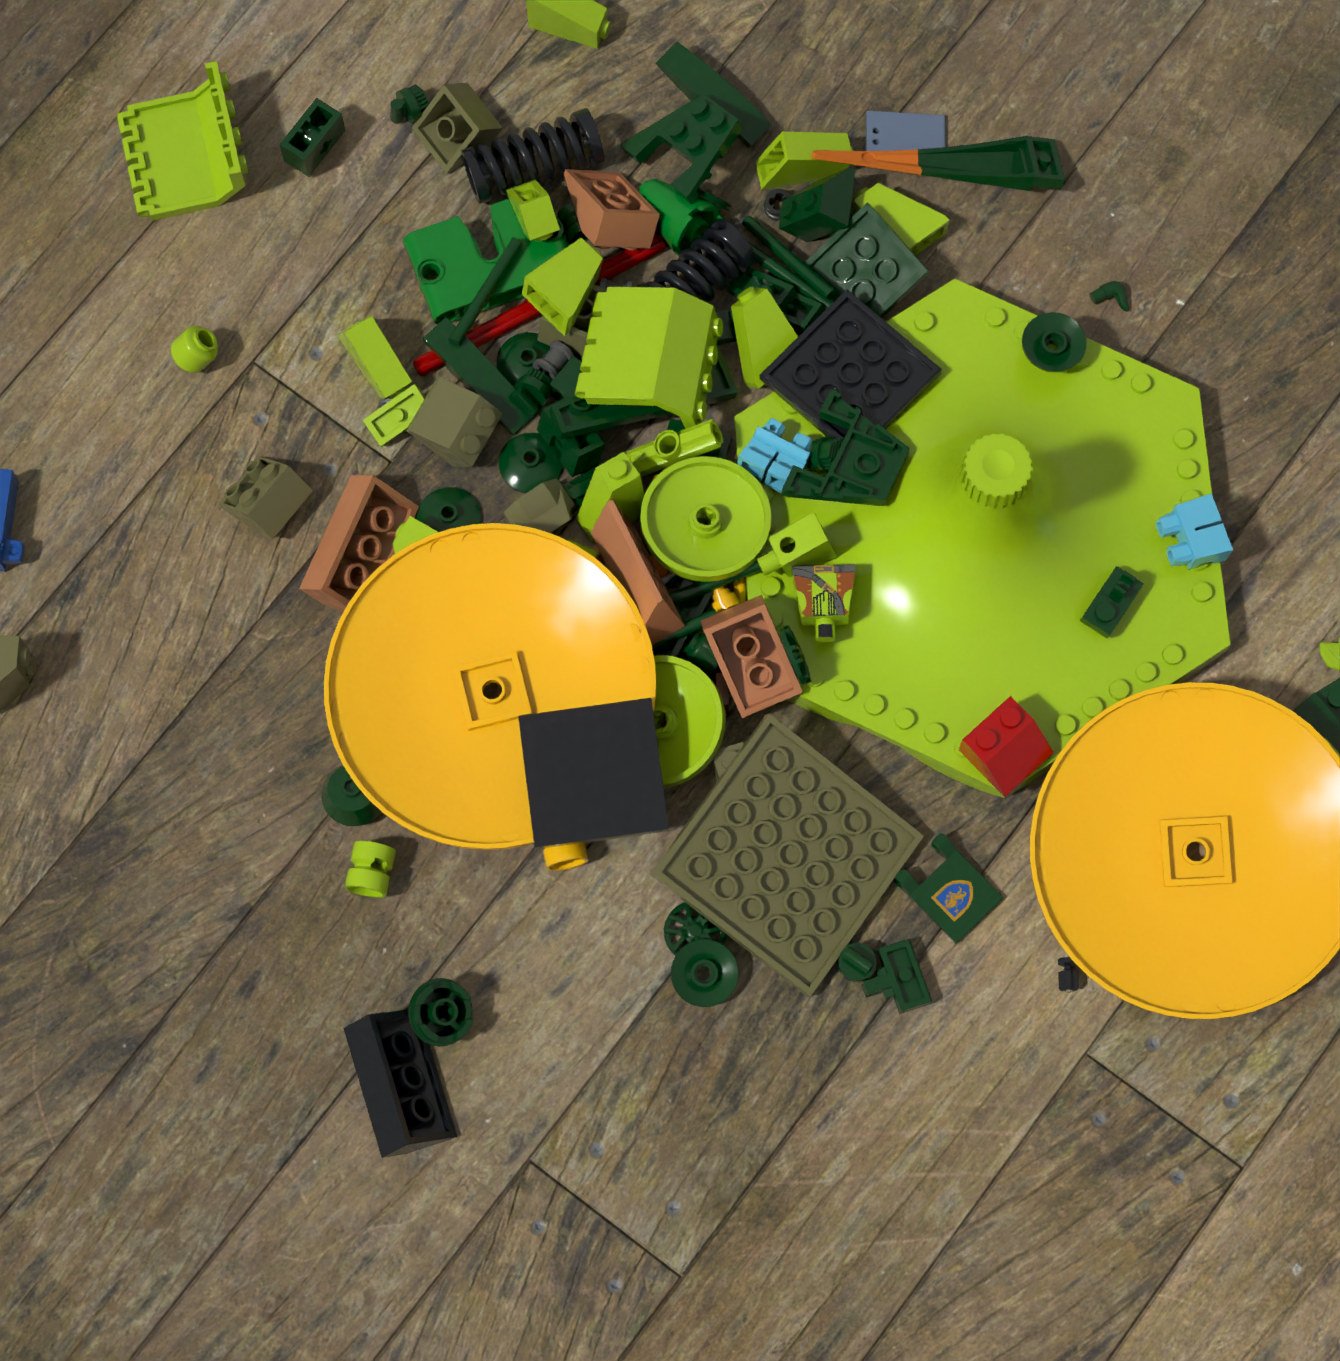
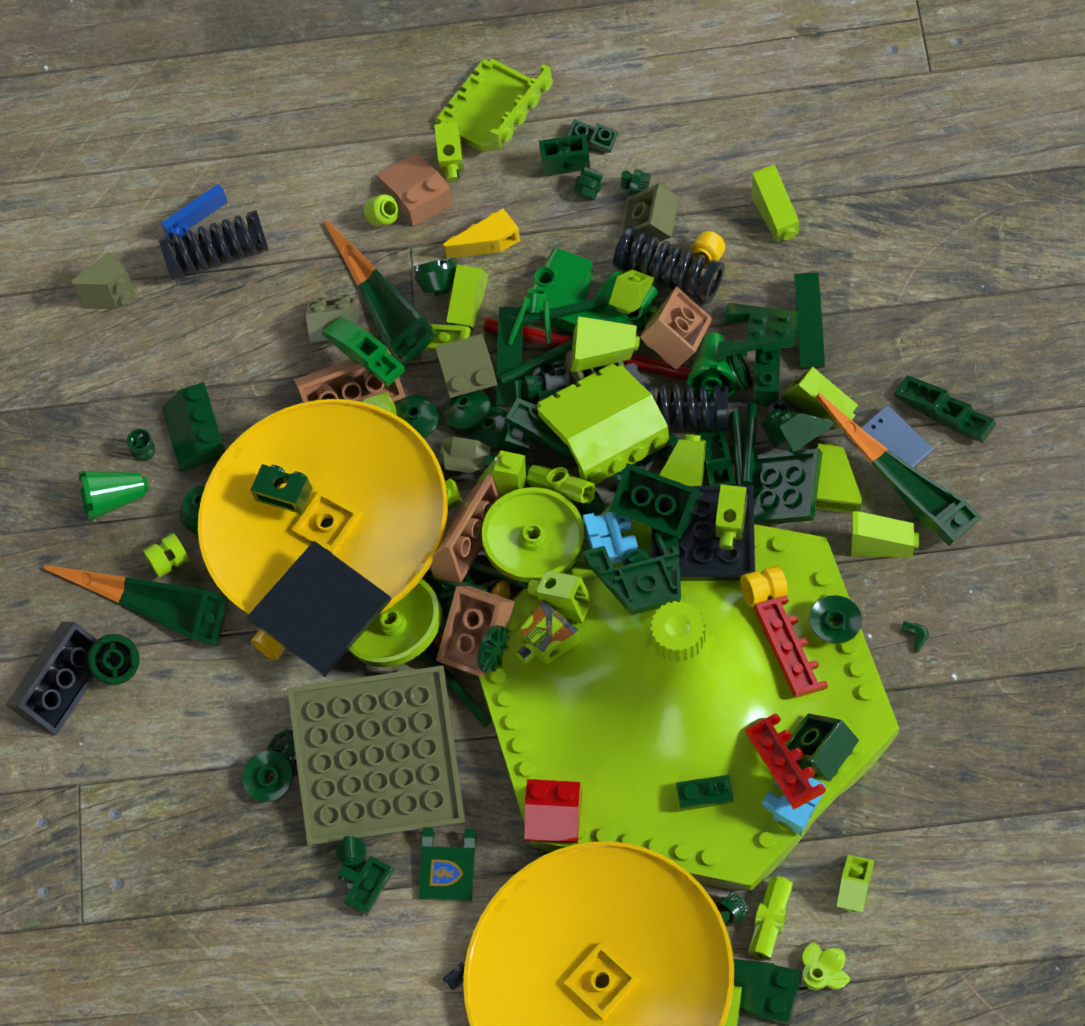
camera: 55 degrees right, 10 degrees down
(80, 475) = (176, 264): none -> black piece
(196, 232) = (449, 151): none -> lime torso
(197, 295) = (416, 188): none -> nougat slope
(217, 784) = (141, 444): none -> dark green wheel
(242, 865) = (109, 491): none -> green cone
(251, 726) = (193, 427): none -> dark green slope
(324, 87) = (598, 138): none -> dark green slope
(325, 362) = (436, 276): none -> dark green cone
(327, 281) = (486, 237): none -> yellow slope
(332, 440) = (397, 319): none -> dark green plate
(346, 493) = (365, 349): none -> green slope
(363, 145) = (588, 183): none -> dark green piece
(418, 714) = (290, 497): none -> dark green brick
(444, 902) = (184, 609): none -> dark green plate
(460, 302) = (533, 302): none -> green plant
(504, 469) = (466, 410): none -> dark green dish
(515, 355) = (536, 362): none -> dark green bar
(546, 105) = (709, 245): none -> yellow head
(738, 183) = (766, 377): none -> dark green brick
(790, 382) = (655, 501): none -> dark green slope
(797, 727) = (460, 692): none -> dark green bar
(871, 332) = (731, 515): none -> lime torso
(917, 70) = (942, 408): none -> dark green slope
(962, 370) = (763, 586): none -> yellow wheel
(995, 235) = (881, 536): none -> lime slope
(1041, 406) = (788, 648): none -> red hinge
(1159, 509) = (782, 762): none -> red hinge
(1163, 466) = (824, 744): none -> dark green slope
(1230, 674) = (732, 908): none -> dark green piece
(1267, 657) = (770, 918): none -> lime piece
(1303, 558) = (855, 883): none -> lime slope

